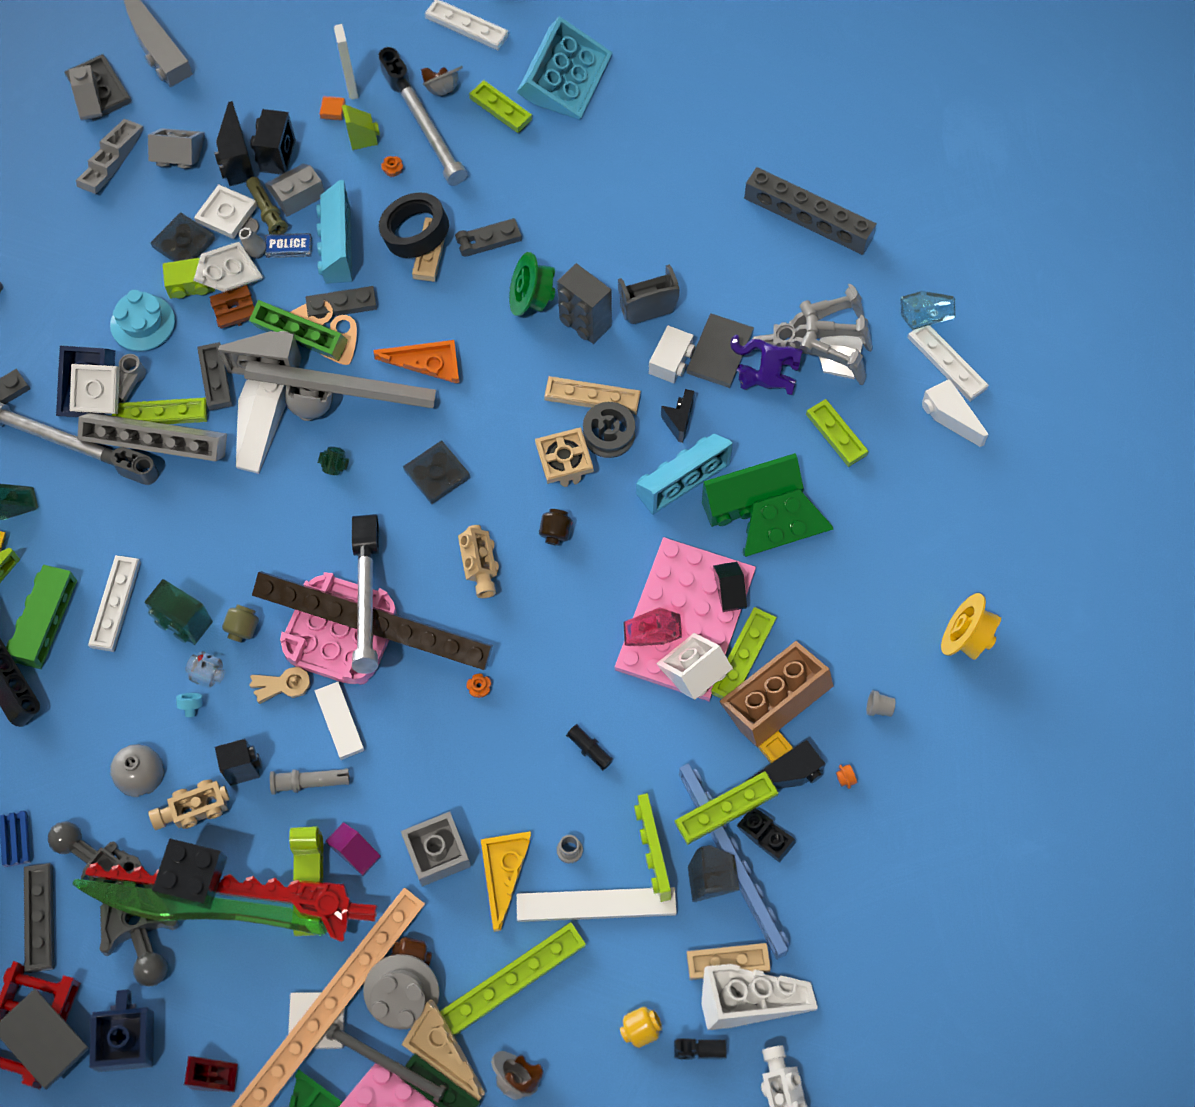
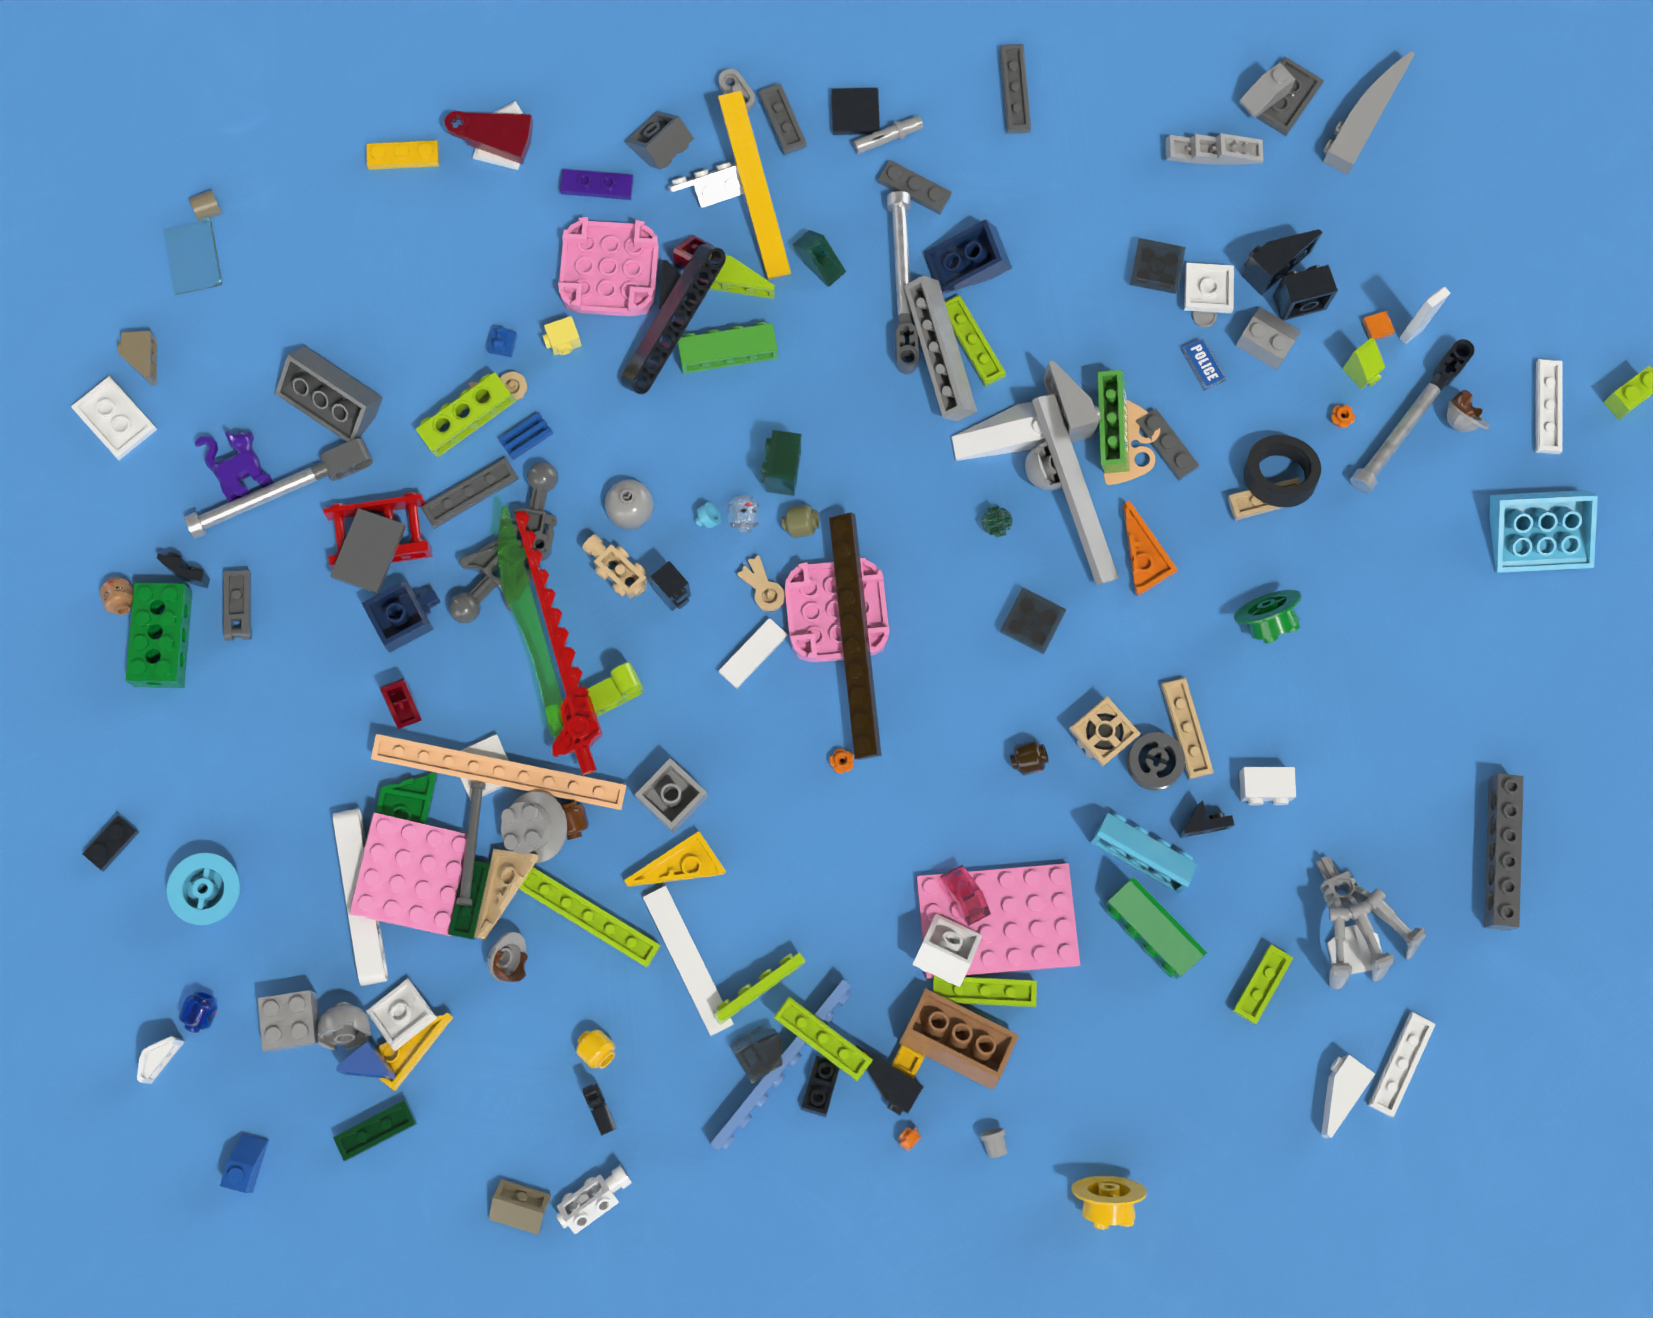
camera: 60 degrees right, 10 degrees up
(94, 388) = (961, 272): white tile -> none
(114, 603) = (771, 402): white tile -> none
(127, 377) = (985, 293): light grey piece -> none
(141, 321) = (1054, 276): medium azure piece -> none
(175, 147) = (1255, 203): light grey slope -> none
(180, 277) = (1120, 292): lime brick -> none
(189, 874) = (548, 599): black brick -> none
(214, 377) = (1030, 370): dark grey plate -> none
(226, 268) = (1145, 322): white tile -> none
(230, 316) = (1114, 337): dark orange piece -> none
(252, 243) = (1186, 331): light grey cone -> none
(269, 213) = (1228, 329): olive pin -> none
(296, 780) = (680, 644): light grey pin -> none
(335, 235) = (1234, 403): medium azure slope -> none
(353, 848) = (643, 723): magenta slope -> none
(365, 544) = (927, 591): flat silver piece -> none
(478, 560) = (962, 702): tan brick -> none
(488, 237) = (1310, 548): dark grey plate -> none
(500, 106) = (1466, 487): lime plate -> none
(569, 857) = (727, 922): light grey piece -> none
(584, 303) = (1272, 676): dark grey brick -> none
(589, 747) = (829, 888): black pin -> none
(649, 298) = (1316, 734): dark grey piece -> none
(713, 355) = (1298, 830): dark grey tile -> none
(730, 586) = (1045, 948): black slope -> none
(746, 997) = (662, 1130): white wedge -> none
(747, 957) = (687, 1101): tan plate -> none
(772, 361) = (1303, 887): dark purple animal -> none
(782, 521) = (1138, 970): green wing -> none
(926, 308) = (1447, 1018): clear light blue slope -> none

